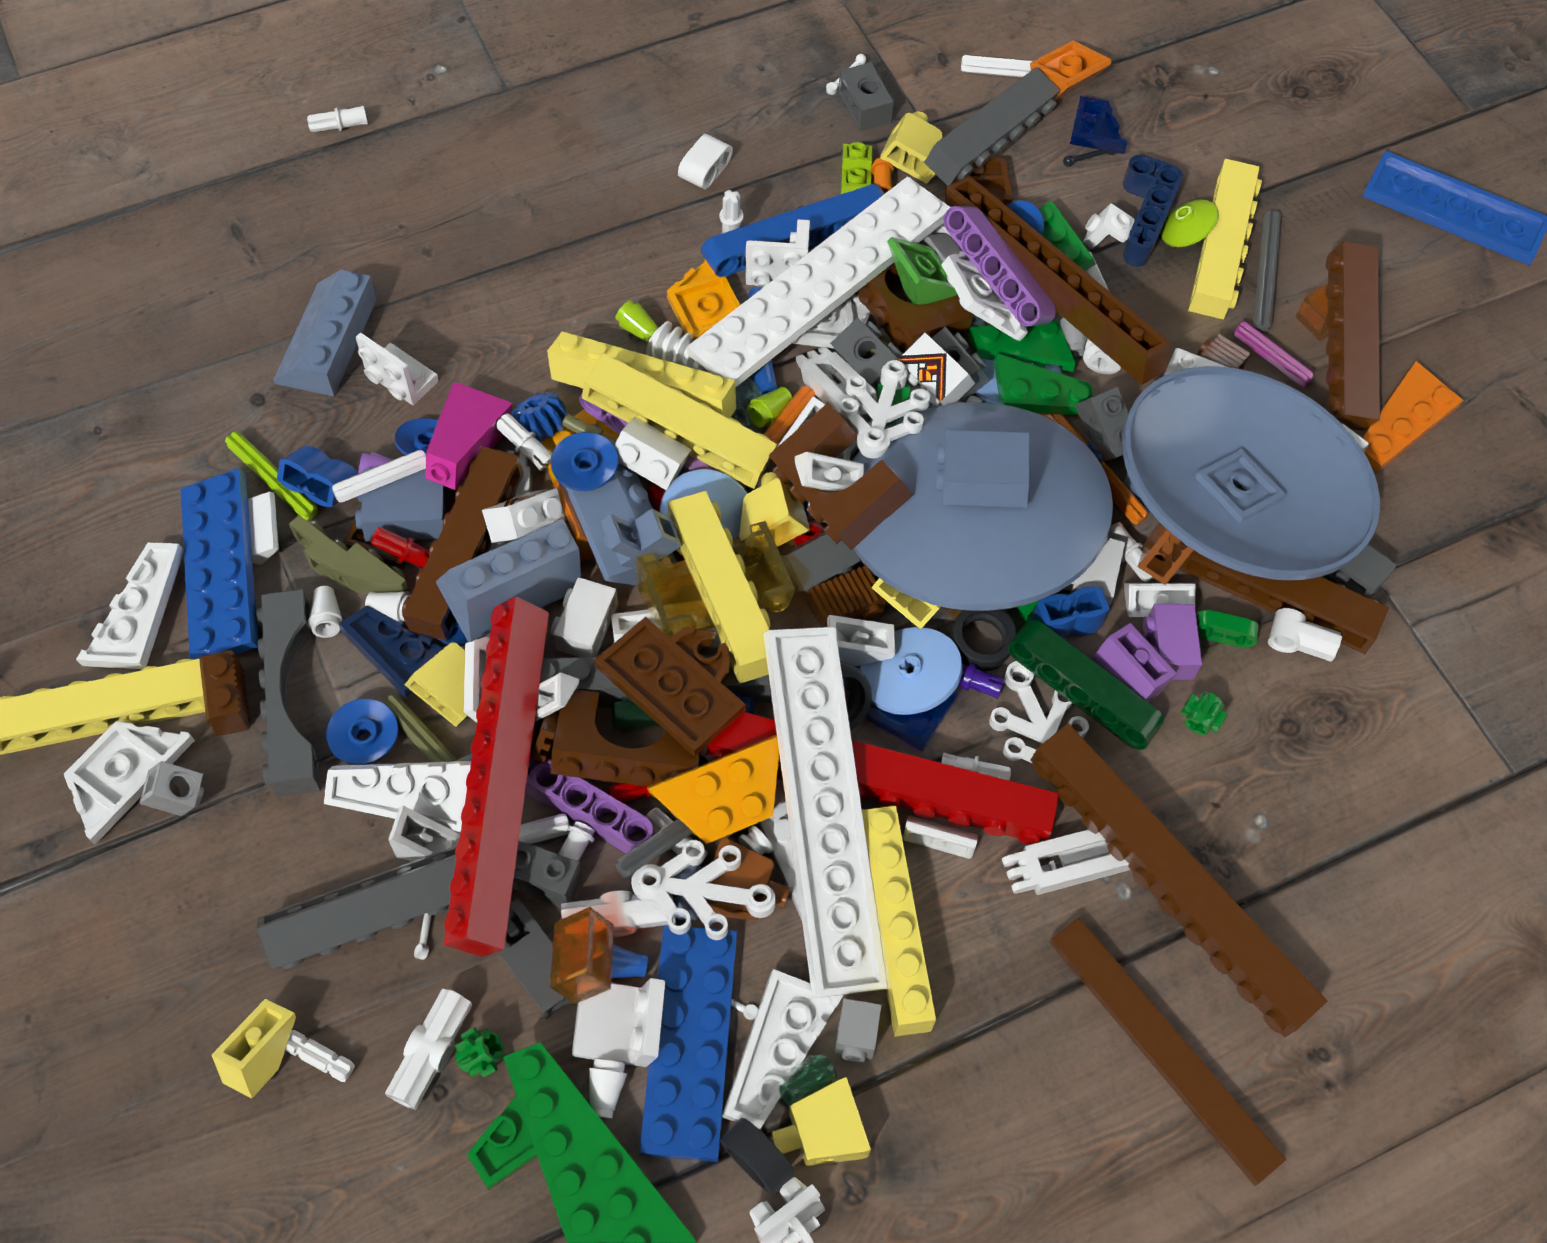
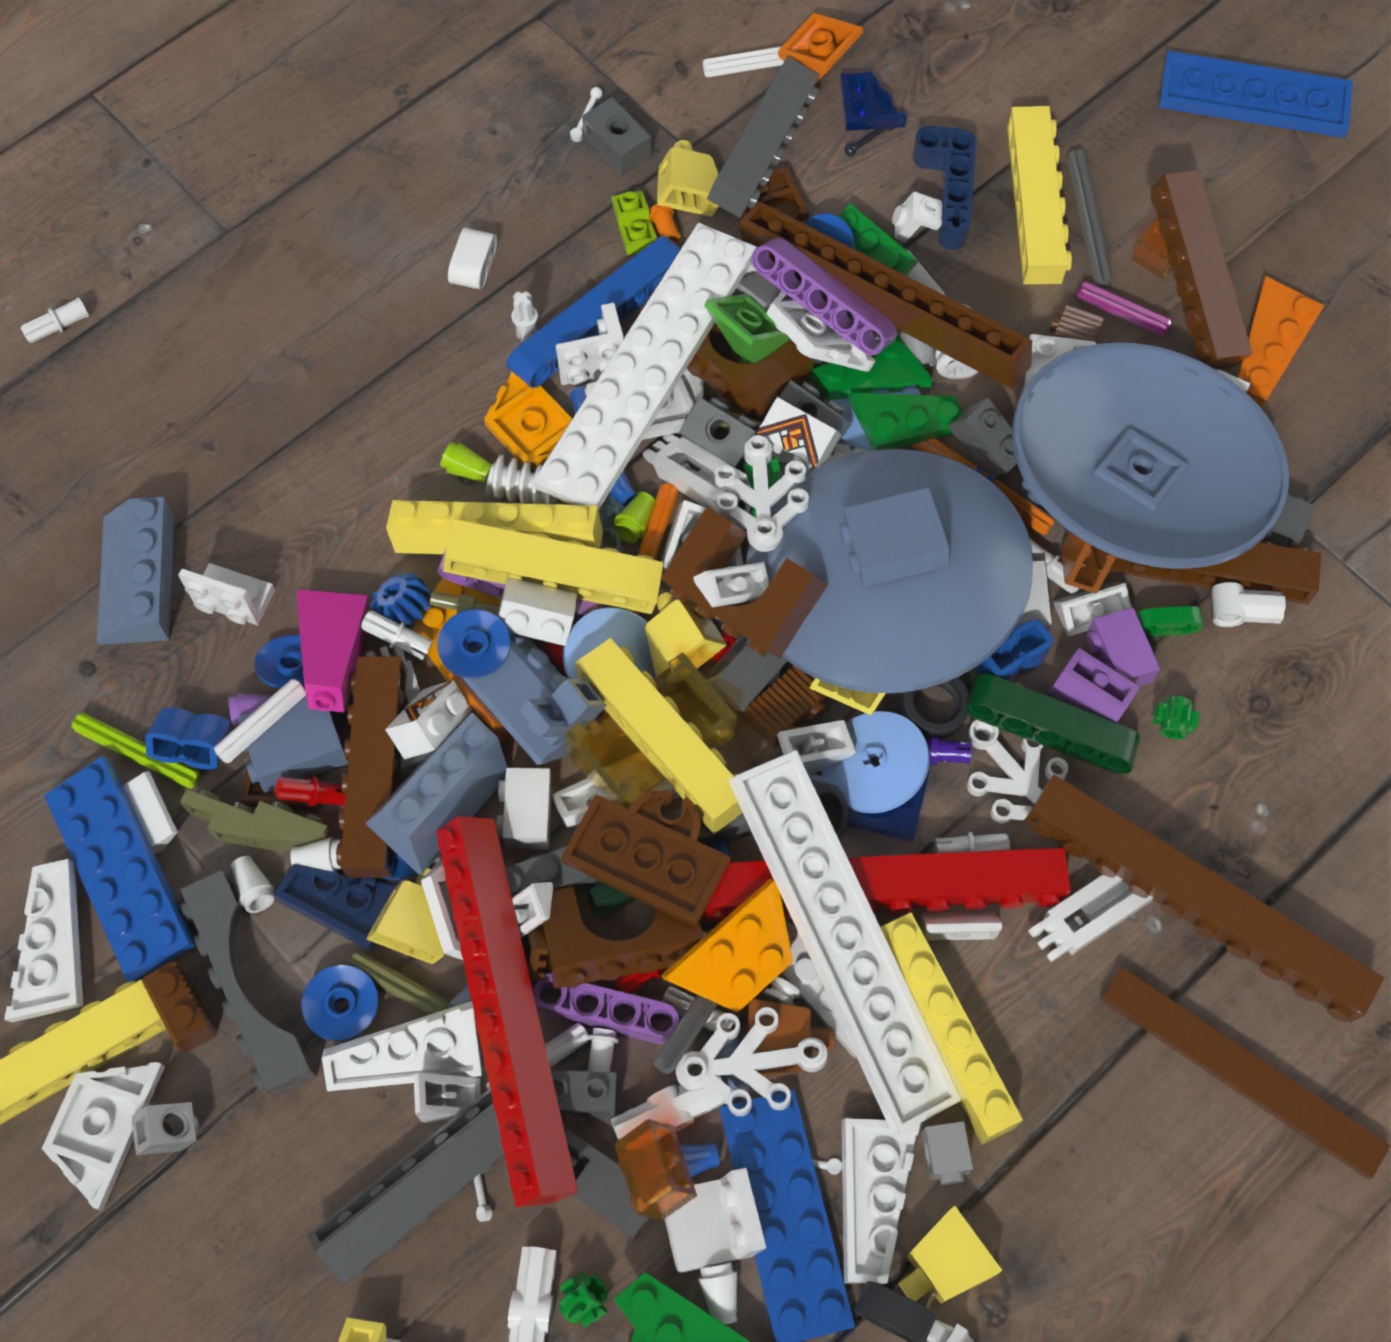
camera: 15 degrees left, 5 degrees up
(809, 1078) = (918, 1217): clear green cone -> none
(1189, 223) = (998, 188): lime dish -> none

